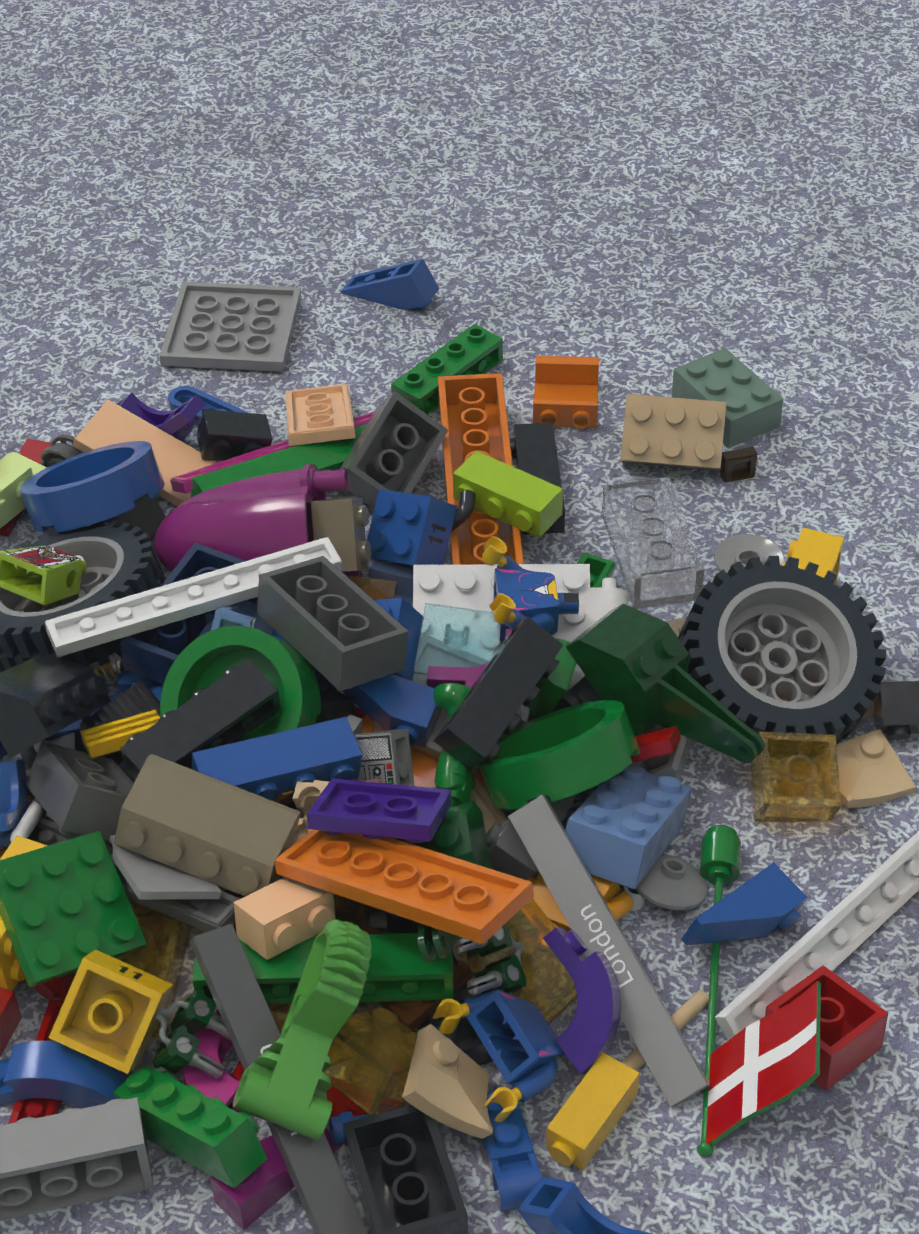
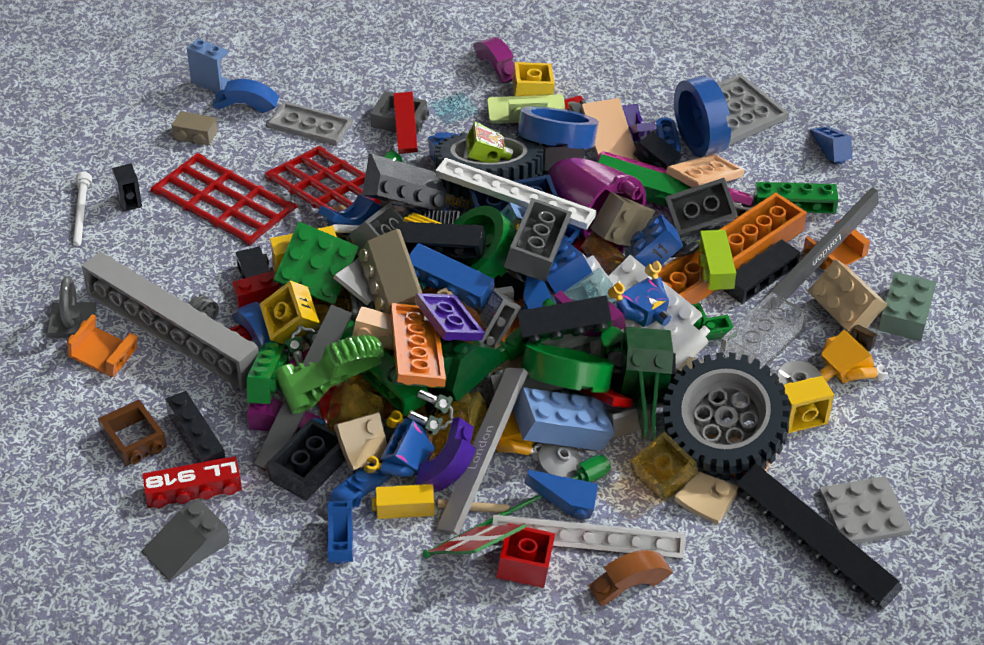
camera: 50 degrees right, 0 degrees up
(222, 365) = (702, 116): none -> blue brick
(579, 398) = (827, 244): none -> dark grey tile
(762, 497) = (848, 360): none -> light orange torso

